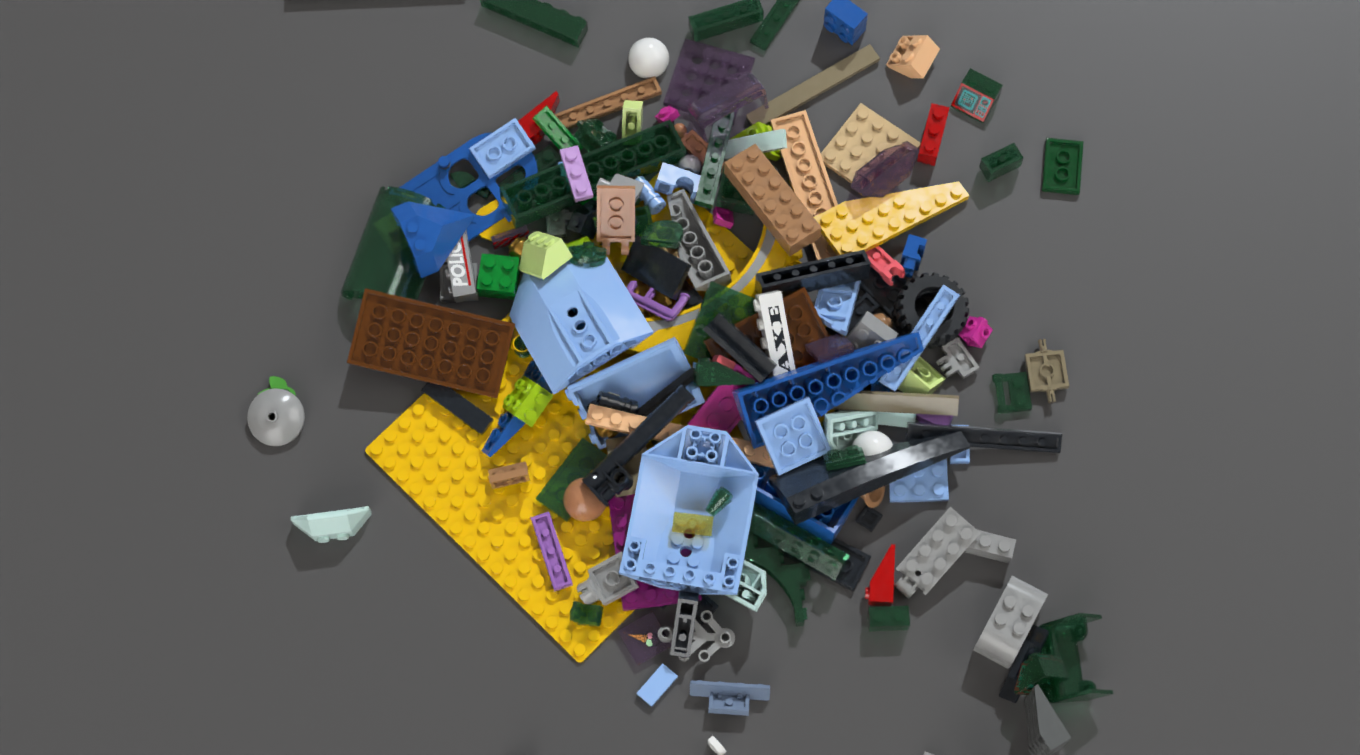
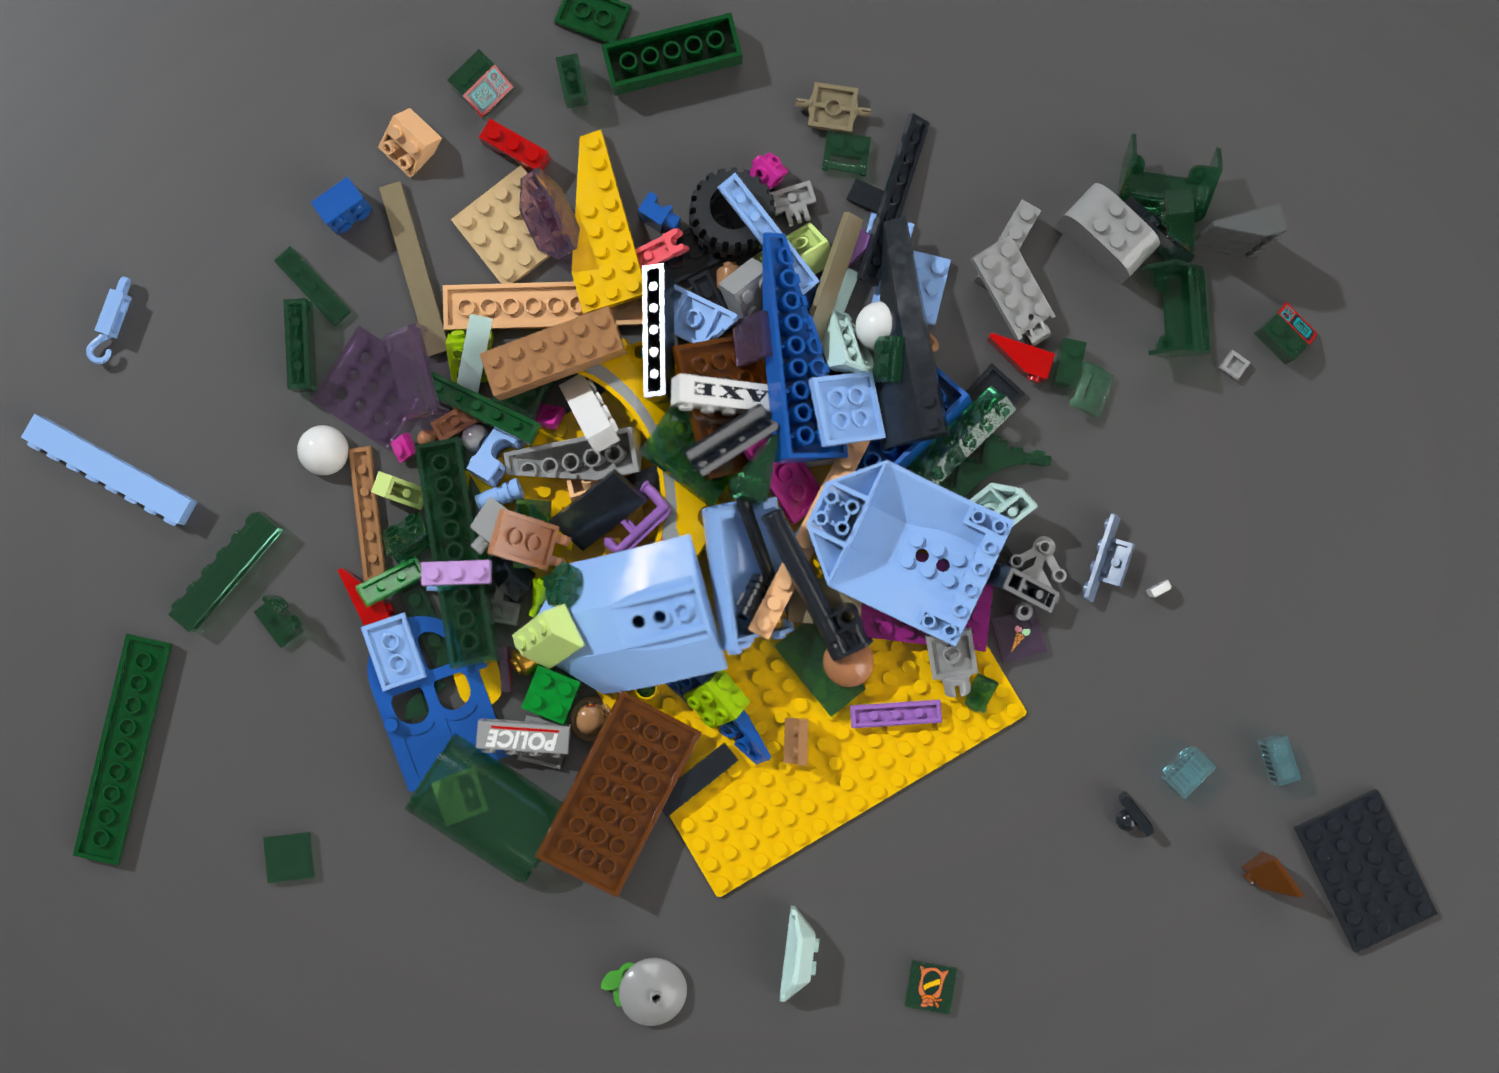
camera: 75 degrees left, 15 degrees up
(321, 117) = (288, 857): none -> clear green tile
(329, 641) = (930, 986): none -> clear green tile
(430, 233) = (483, 763): blue wedge -> none
(489, 308) = (589, 718): none -> medium nougat hat
(506, 61) = (278, 620): none -> clear green bracket
(657, 685) = (1073, 635): light blue tile -> none
(663, 234) = (560, 491): clear green tile -> none
(692, 524) = (917, 549): clear yellow plate -> none
(719, 500) = (901, 512): clear green cone -> none
(724, 361) = (739, 463): coral tile -> none
(732, 241) = (589, 412): none -> white brick
(869, 518) = (948, 352): black tile -> none
(871, 649) = (1096, 392): none -> clear green plate
(965, 708) = (1184, 309): none -> clear green windscreen
(982, 415) = (865, 195): none -> black tile
(1048, 232) = (672, 54): none -> dark green brick

